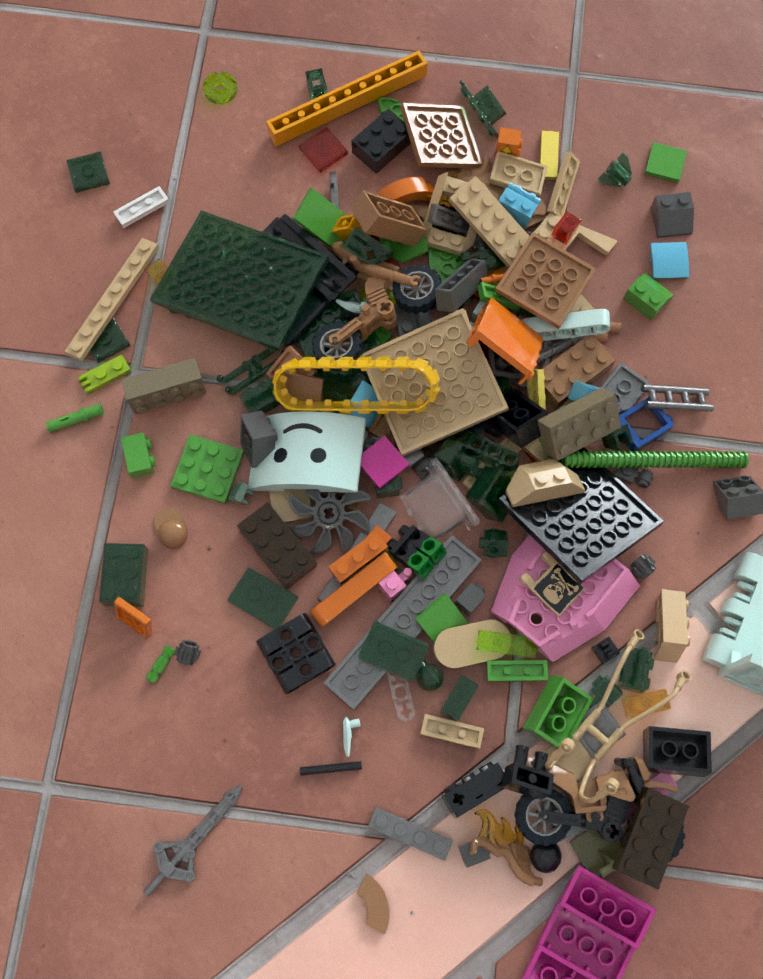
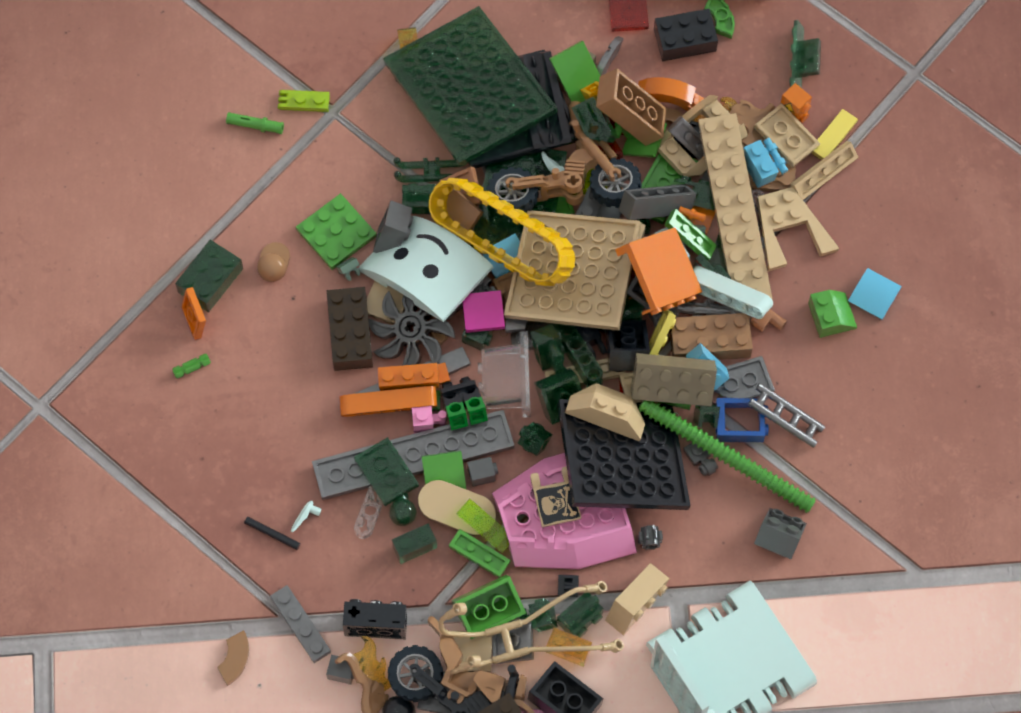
camera: 35 degrees right, 5 degrees down
(109, 342) = (324, 70): clear green tile -> none
(111, 300) = (352, 39): tan plate -> none
(138, 455) = (286, 185): bright green brick -> none
(163, 386) = (345, 139): dark tan brick -> none
(185, 848) = (115, 520): flat silver bar -> none
(187, 652) = (218, 369): dark grey gear -> none
(262, 598) = (309, 365): clear green tile -> none
(275, 648) = (292, 410): black connector -> none
(440, 136) = (740, 60): piece -> none
(452, 731) = (390, 566): tan plate -> none
(526, 779) = (418, 629): black brick -> none
(545, 280) = (735, 241): medium nougat plate -> none
(566, 228) = (792, 207): clear red brick -> none
(618, 172) = (884, 186): clear green brick -> none
(665, 162) = (940, 204): bright green tile -> none
(673, 214) = (908, 255): dark grey slope -> none

